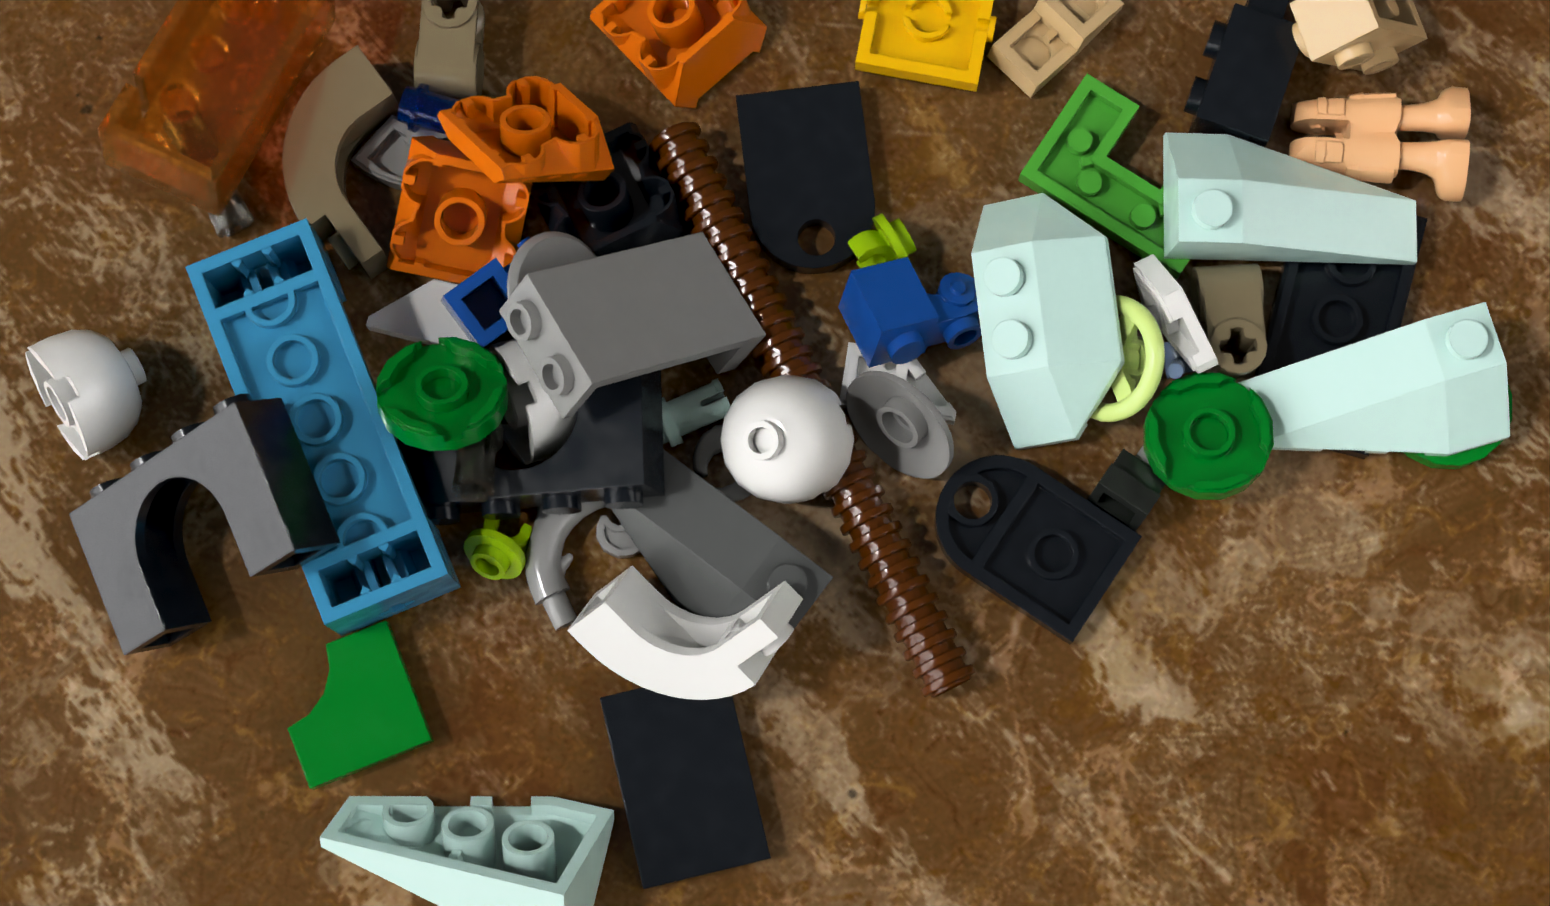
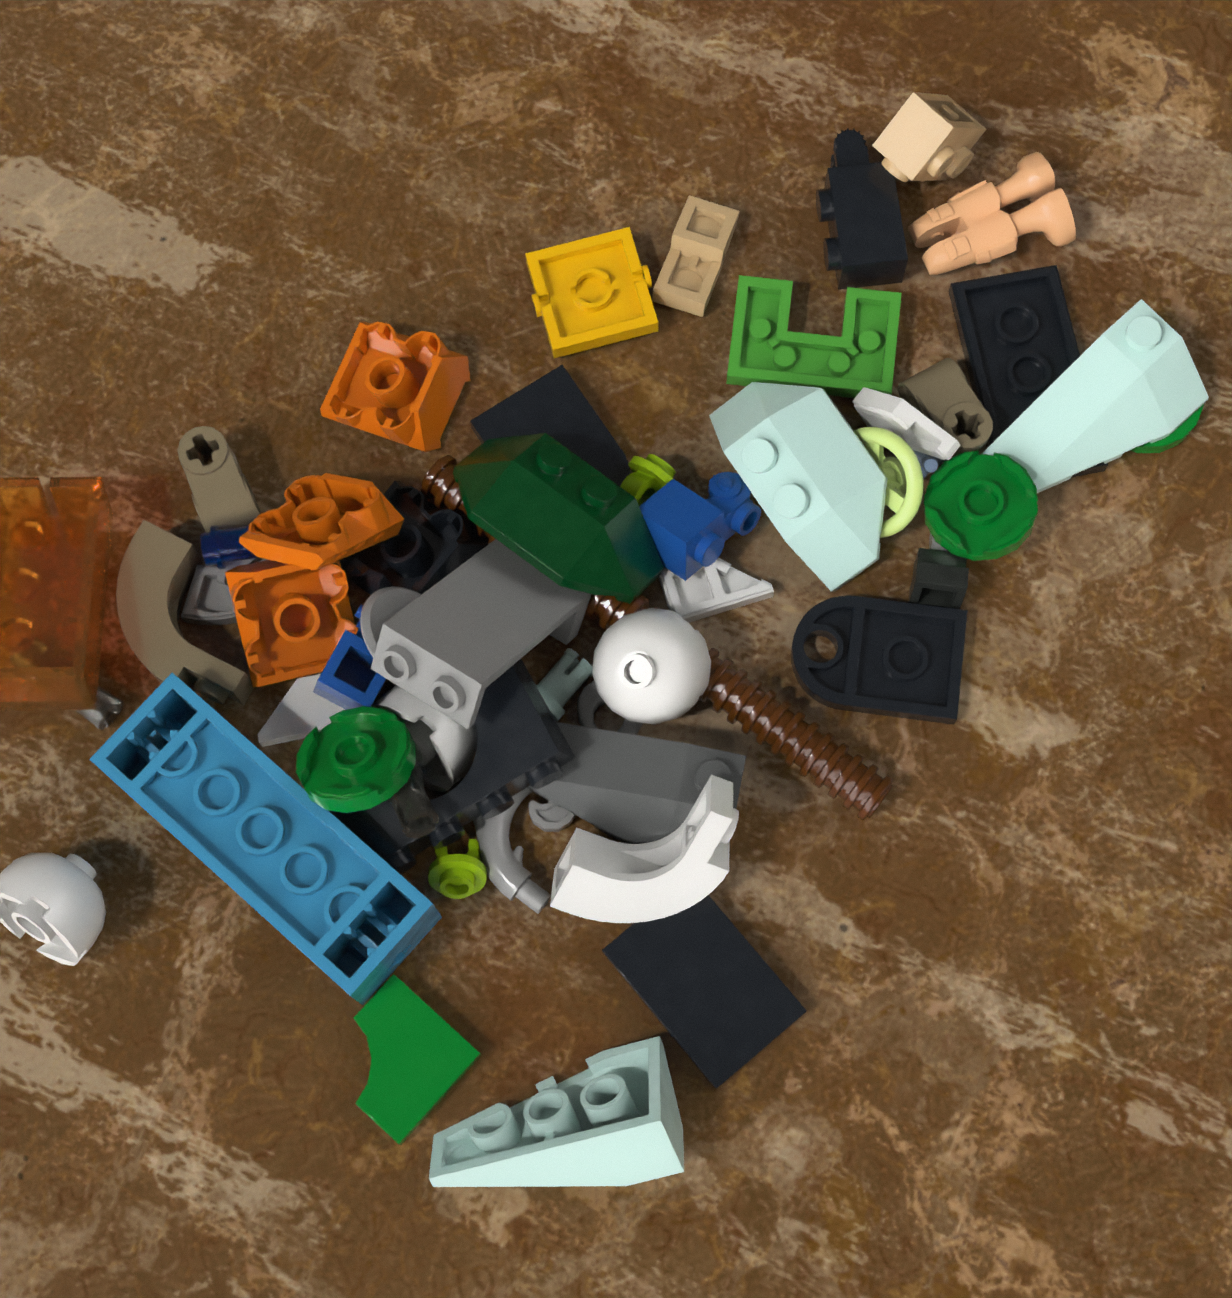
camera: 25 degrees left, 5 degrees down
(136, 521) = (145, 995): arch -> none
(769, 241) = (559, 515): none -> dark green wedge
(900, 424) = (735, 611): light grey dish -> none
(1262, 205) = (925, 312): light aqua wedge -> none

